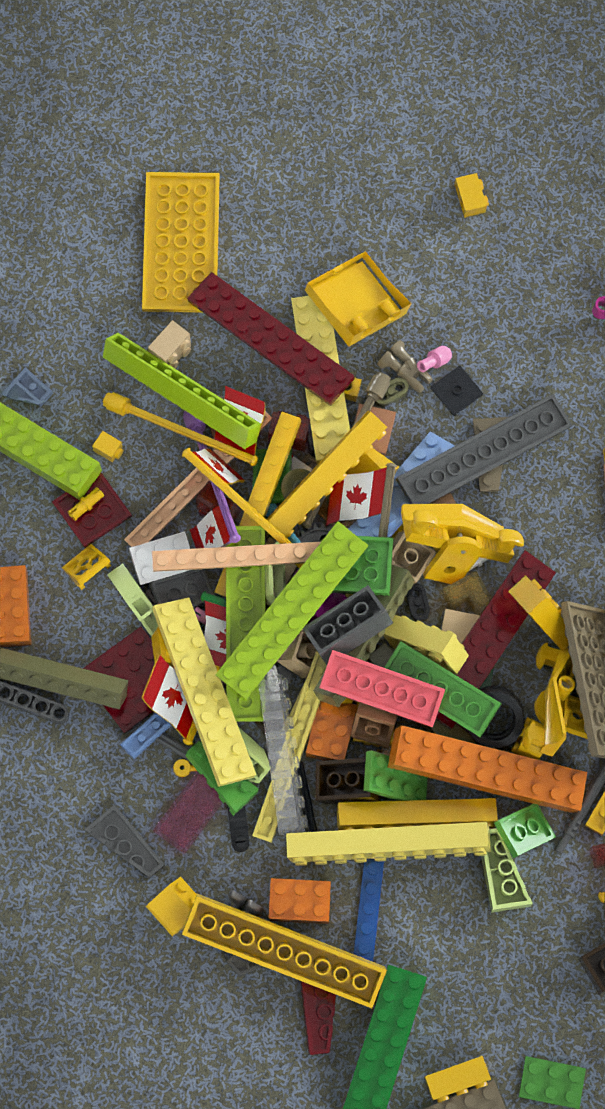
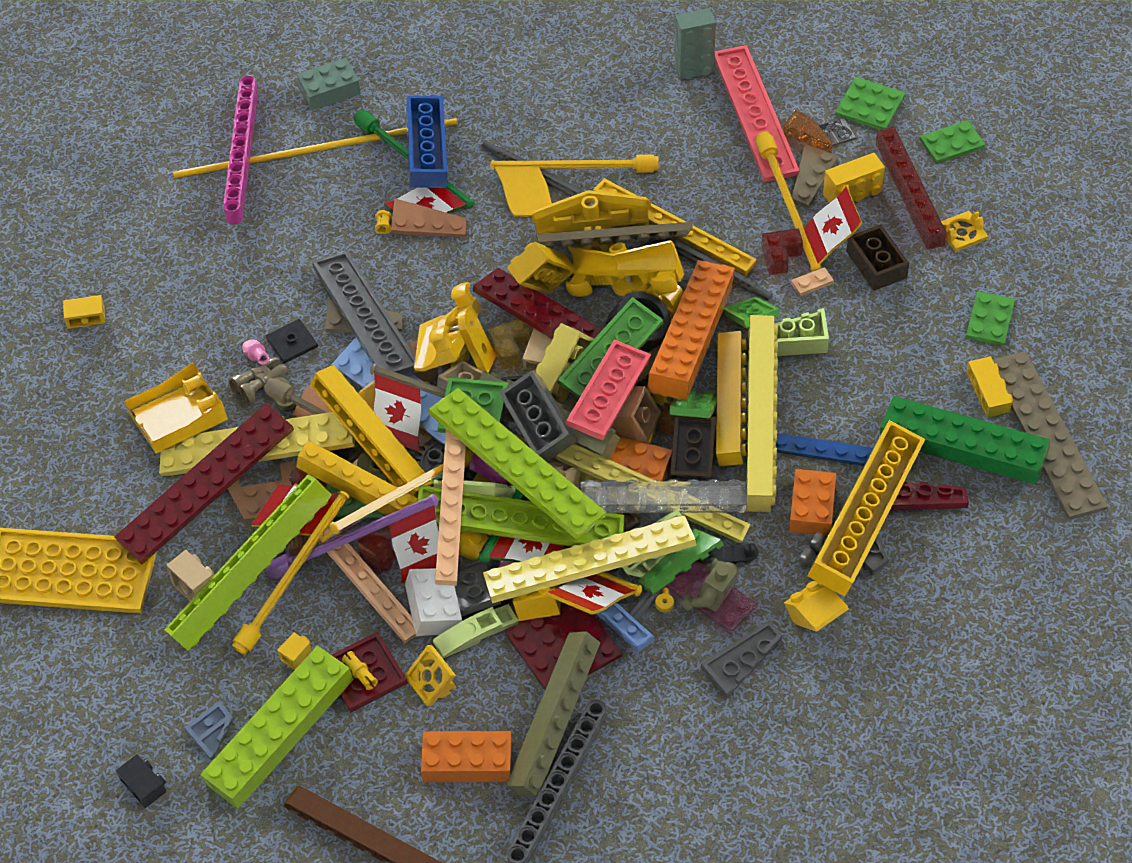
camera: 80 degrees left, 20 degrees down
(190, 812) = (715, 587): none -> olive torso
(270, 388) = (252, 498): none -> medium nougat wing
(582, 894) = (812, 281): none -> light nougat plate

